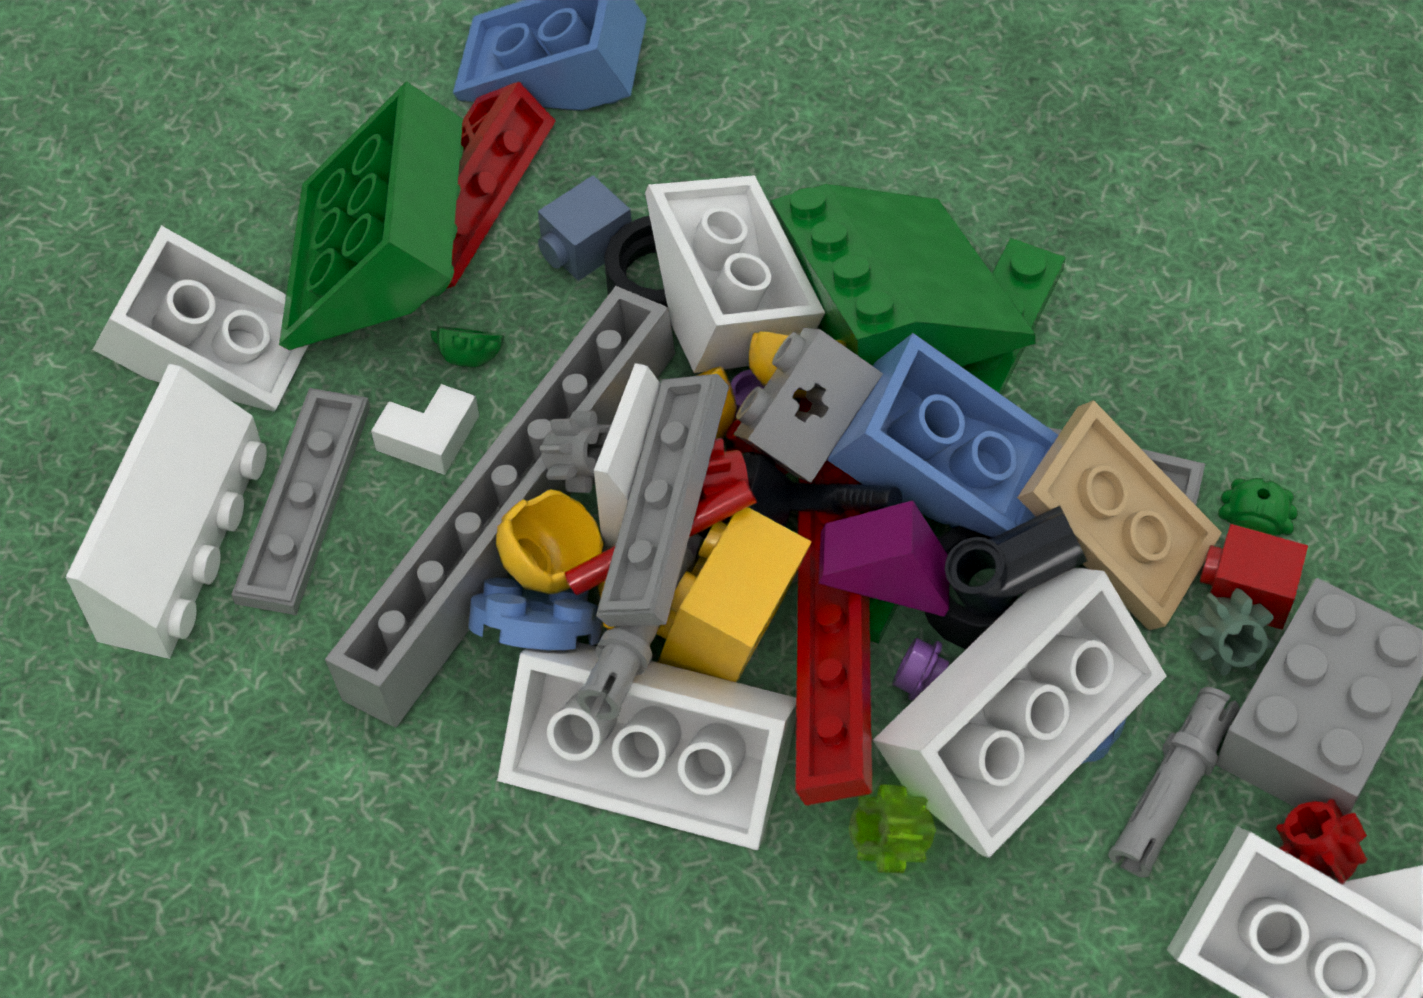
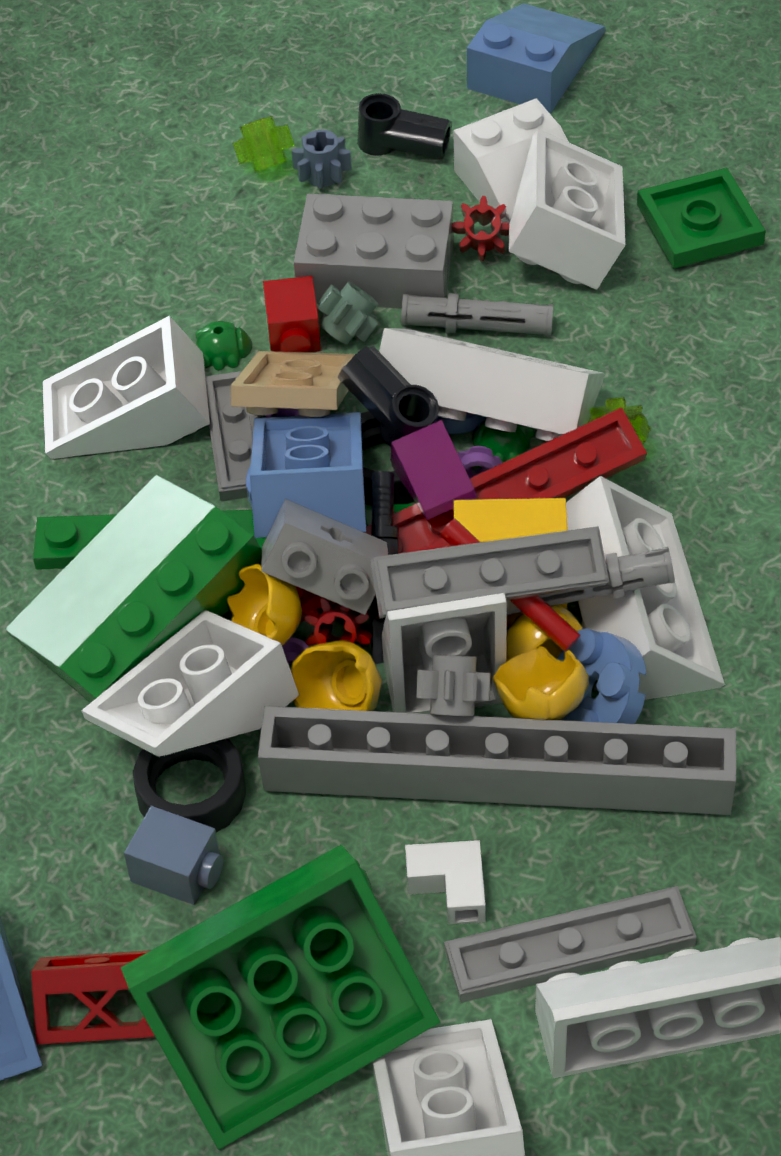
camera: 115 degrees left, 5 degrees down
(1199, 384) = (128, 395): none -> white slope

